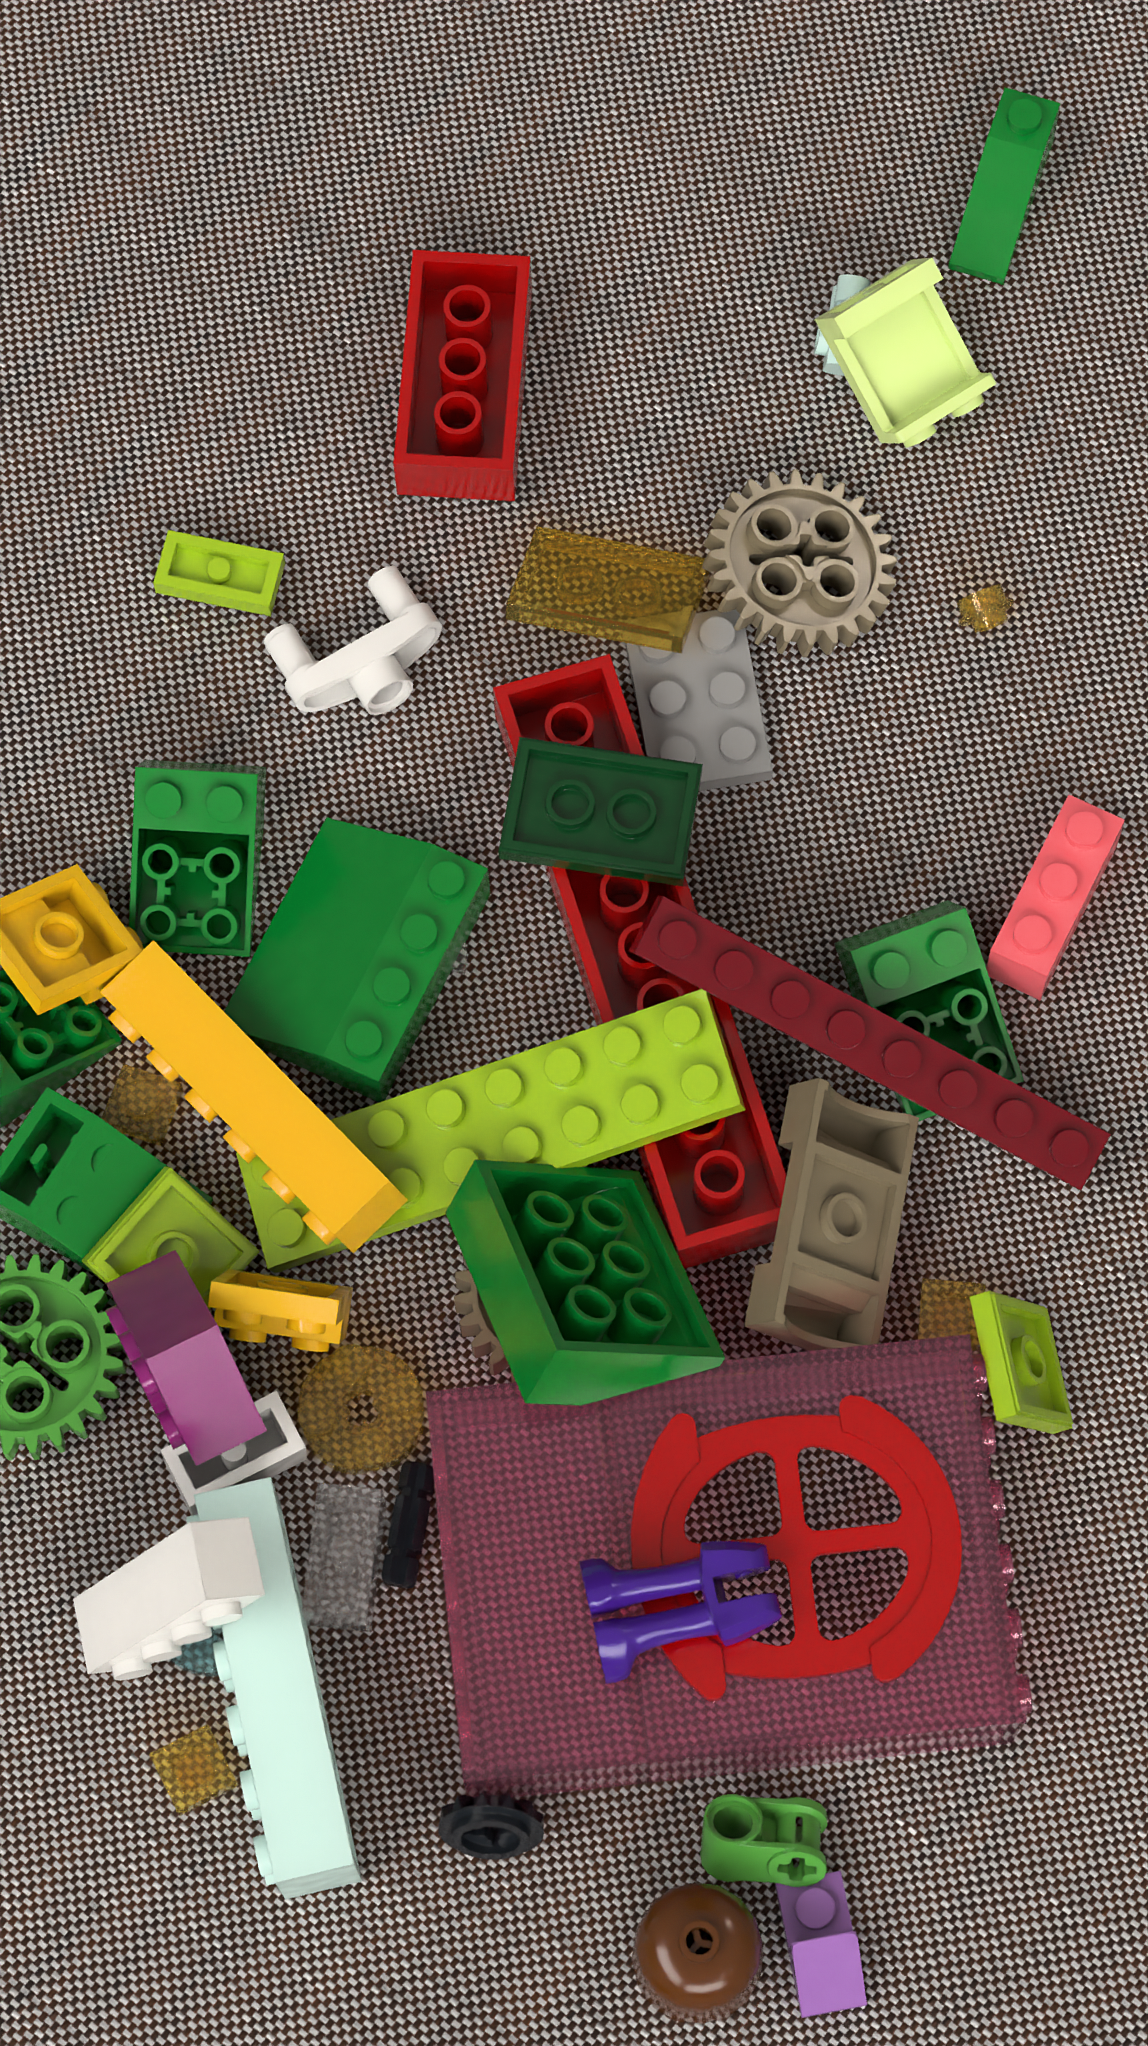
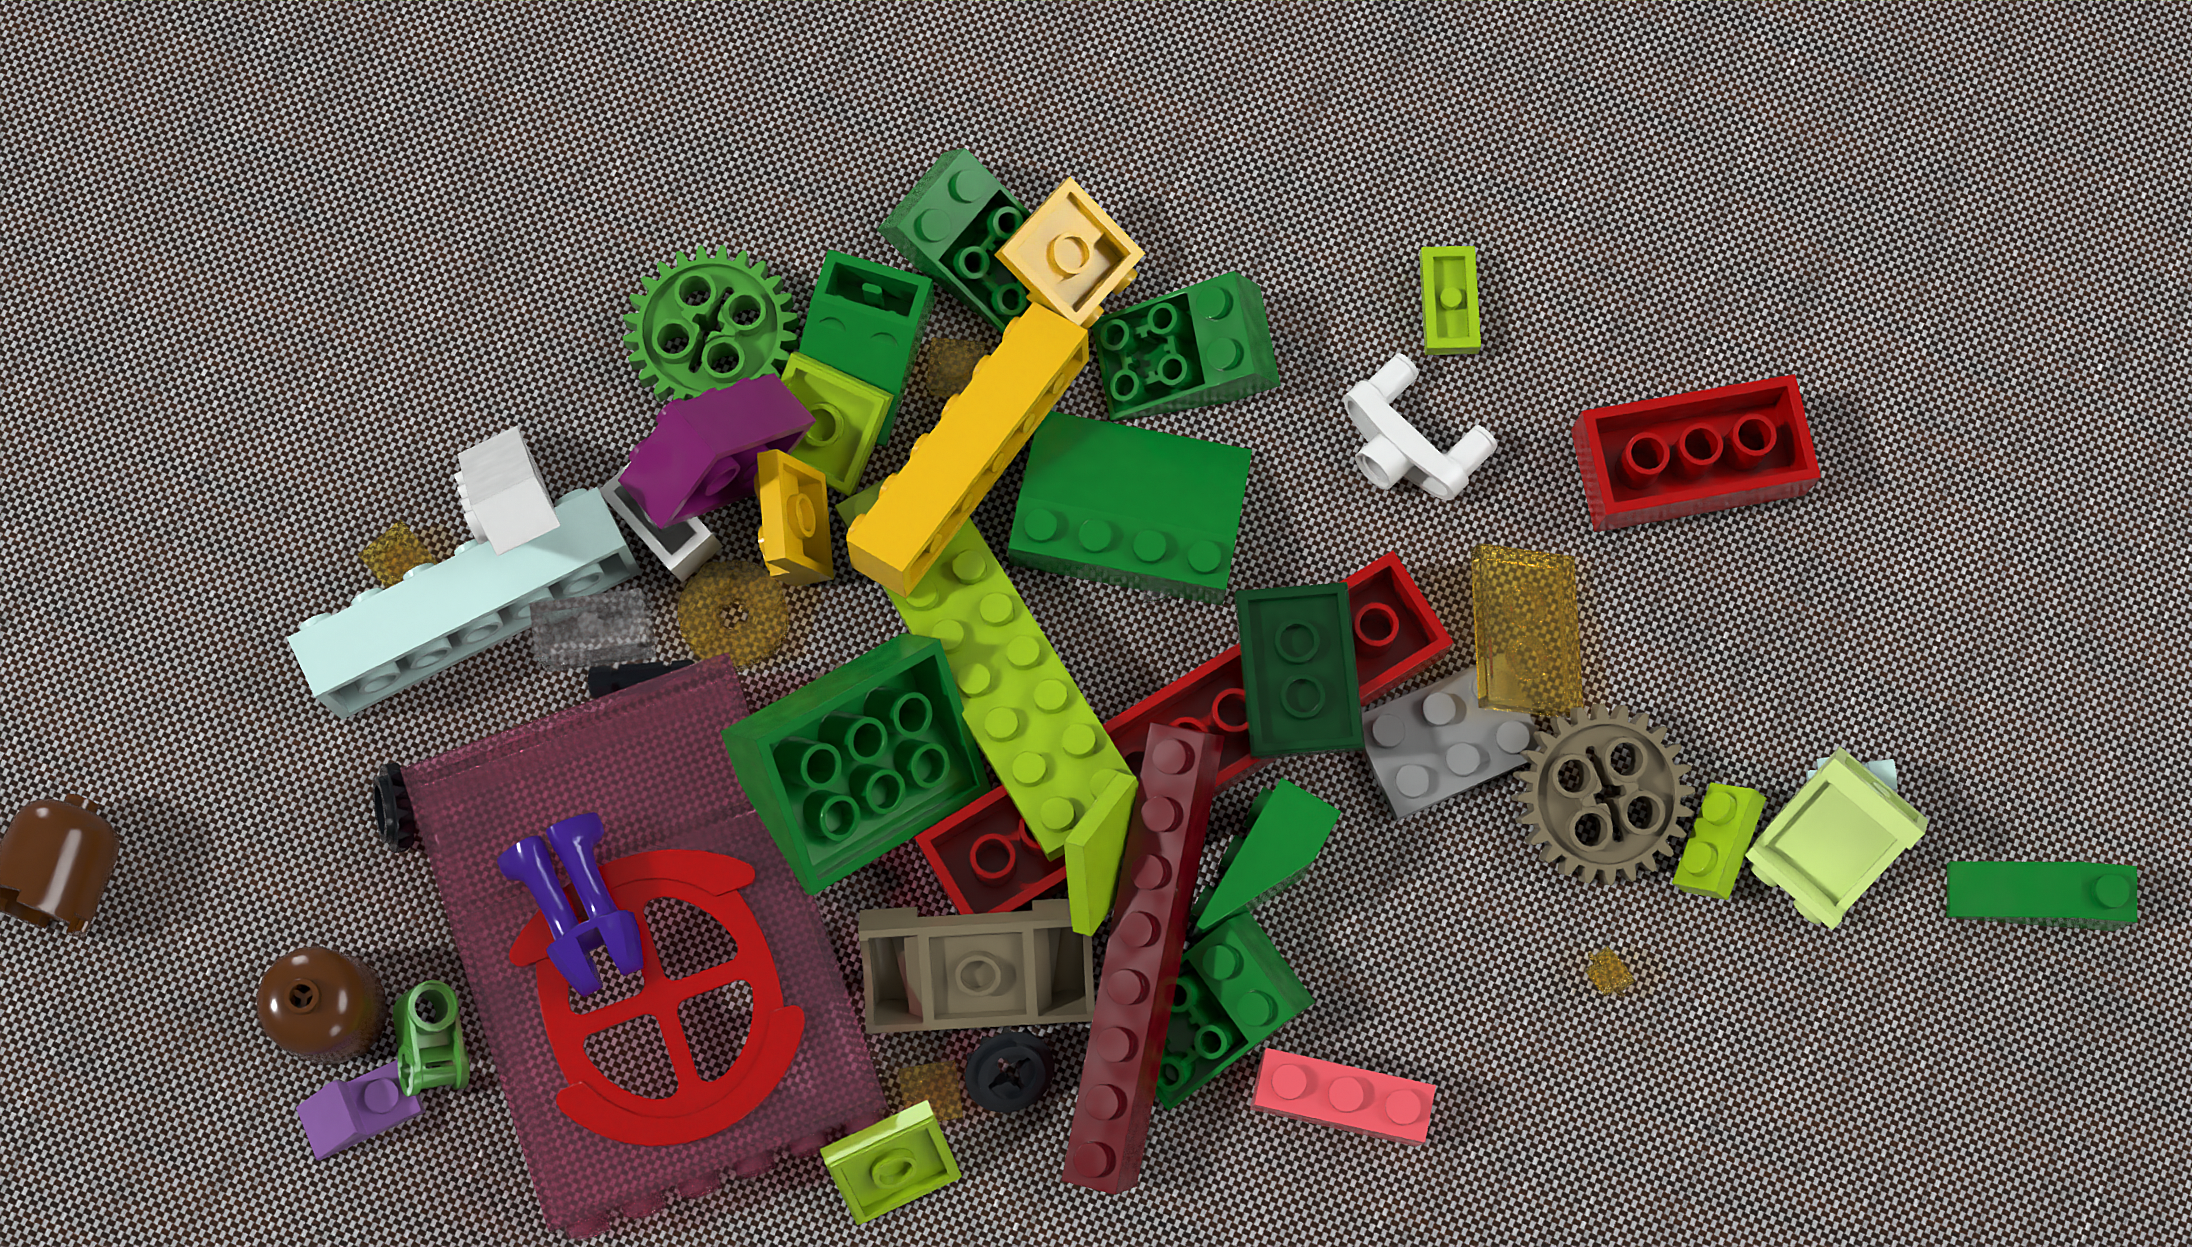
camera: 70 degrees right, 5 degrees up
(757, 1041) = (1096, 854): none -> lime tile
(779, 889) = (1279, 850): none -> green slope
(876, 467) = (1719, 840): none -> lime plate
(949, 1201) = (999, 1090): none -> black gear

